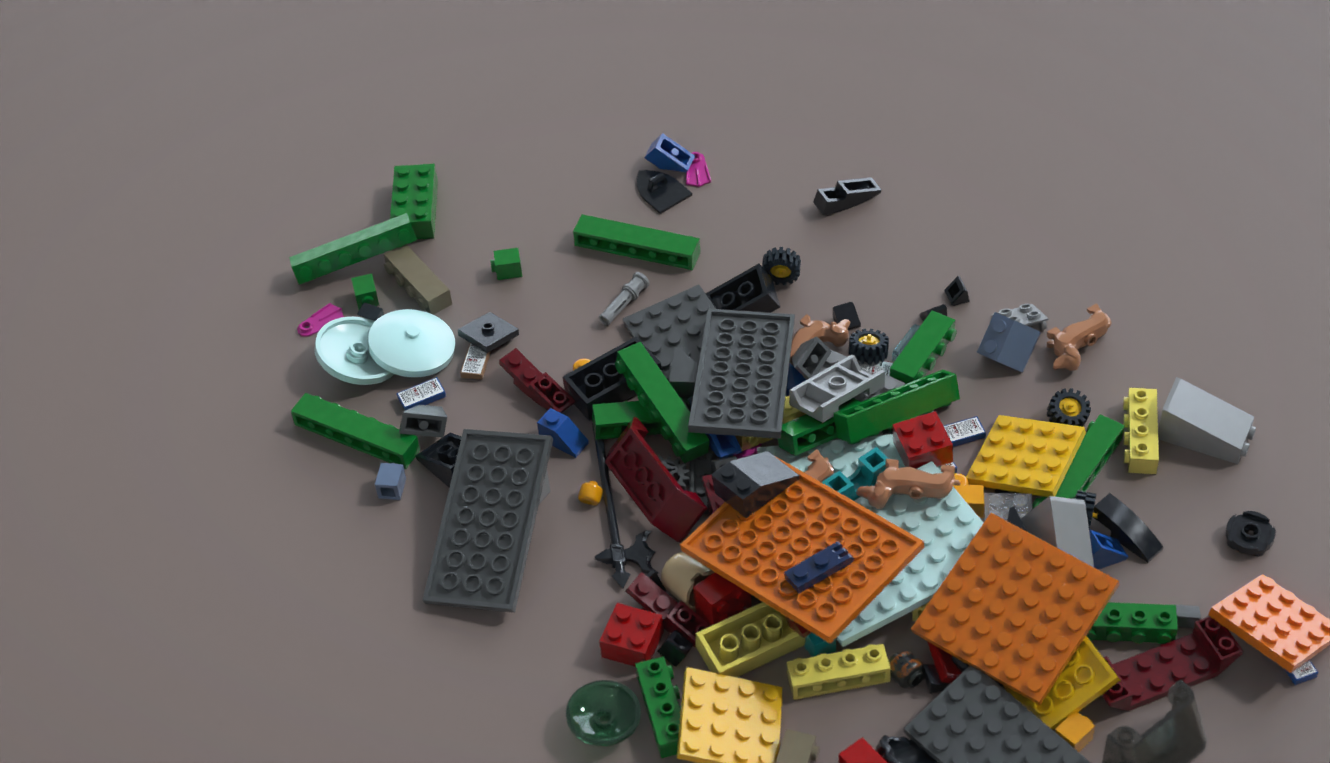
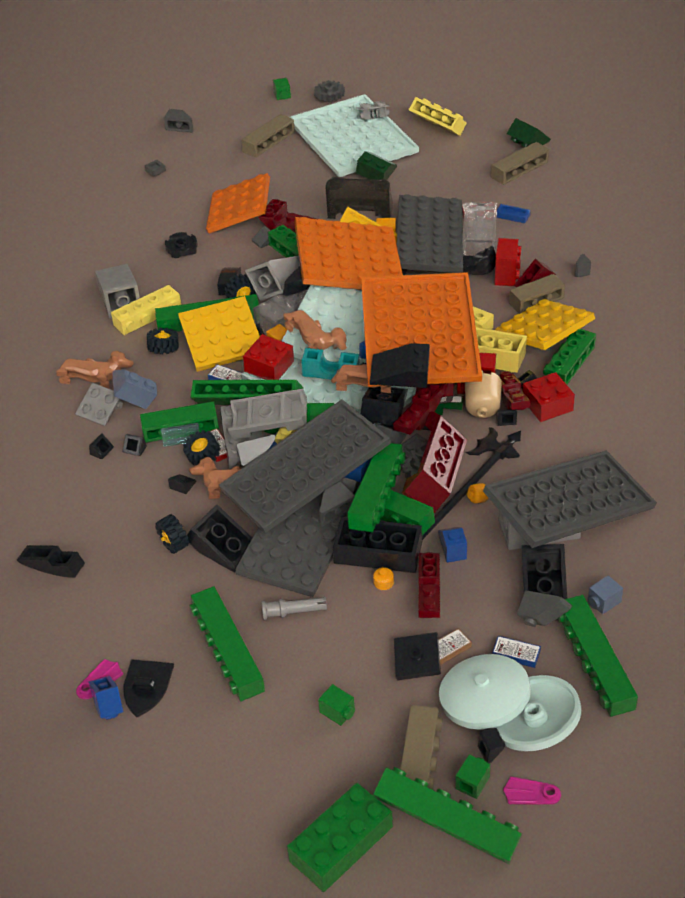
camera: 135 degrees left, 5 degrees down
(603, 702) = (609, 367): clear green dish -> none
(818, 567) = (429, 302): dark blue hinge -> none

